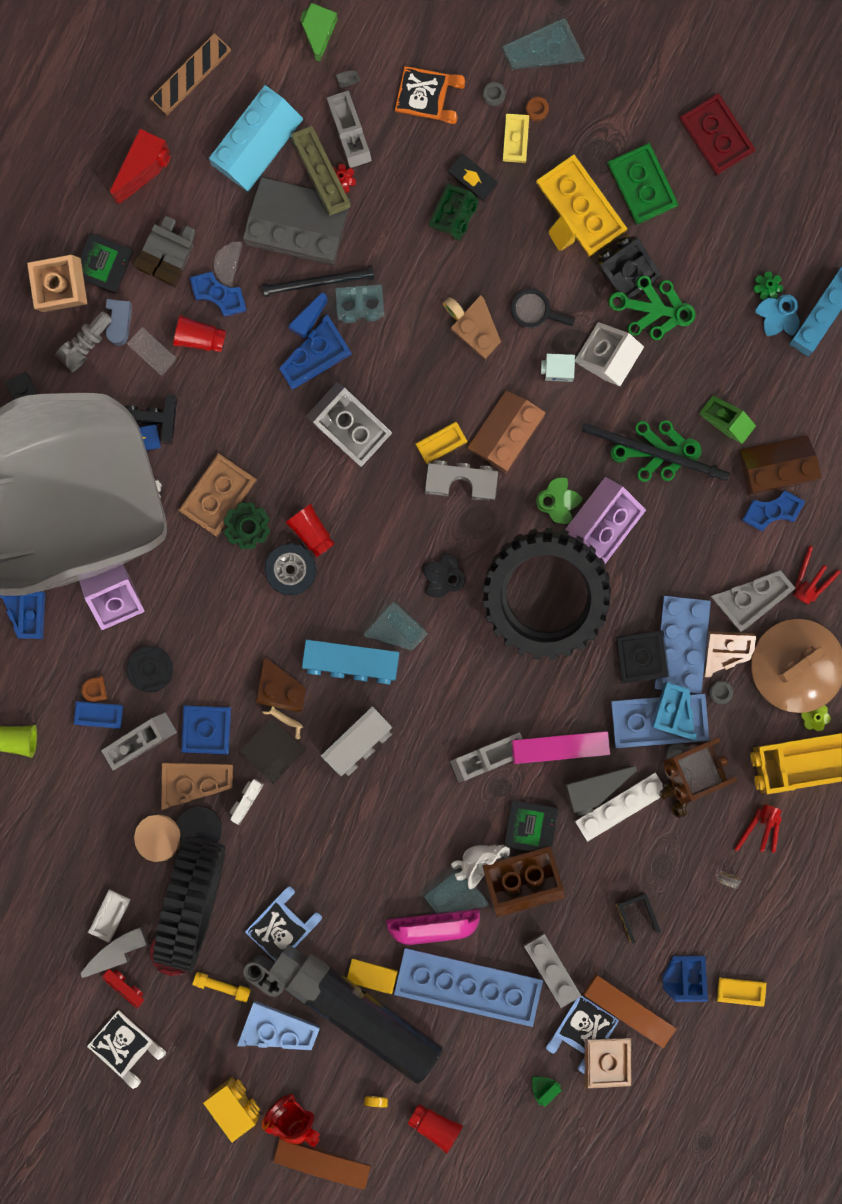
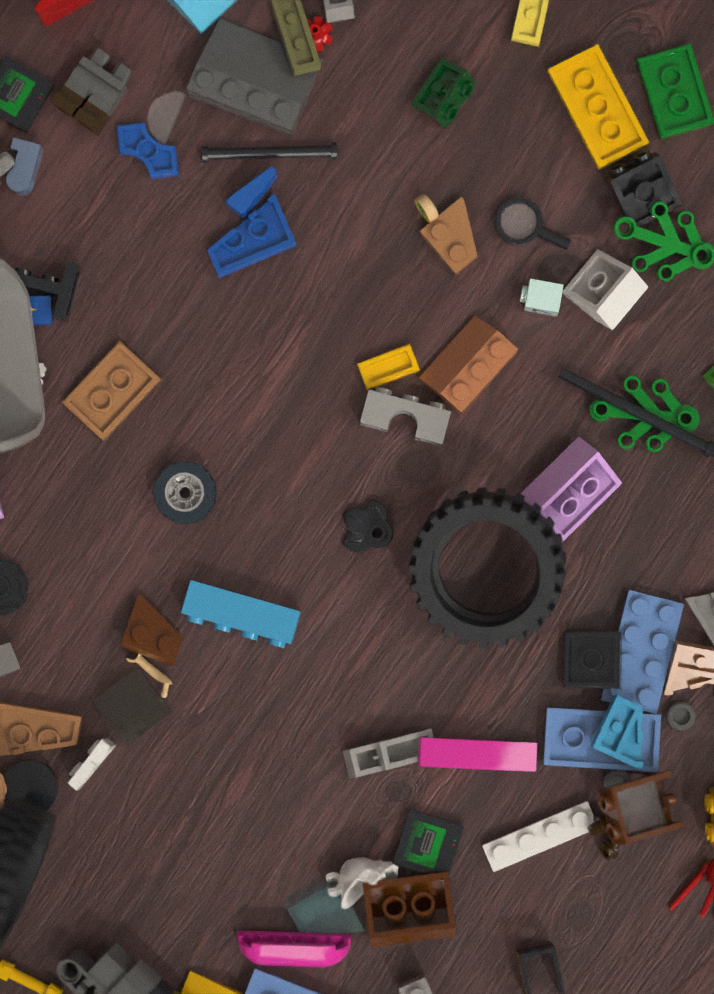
camera: 15 degrees right, 0 degrees up
(152, 351) = (58, 207): clear tile -> none
(198, 335) = (116, 196): red plant -> none
(206, 729) = (56, 670): blue tile -> none
(246, 525) = (140, 432): dark green plant -> none
(280, 926) = (110, 919): flag -> none
(311, 530) = (216, 449): red plant -> none
(349, 424) = (280, 329): light grey slope -> none
(357, 742) = (234, 712): light grey slope -> none
(359, 296) = (316, 177): clear light blue brick -> none
(397, 628) = (302, 582): clear light blue wing -> none
(472, 177) = (472, 54): black tile -> none
(562, 501) = (523, 457): bright green plate -> none
(563, 232) = (571, 136): yellow slope -> none
(592, 791) = (509, 812): dark grey slope -> none
(729, 880) = (657, 944): clear tile -> none

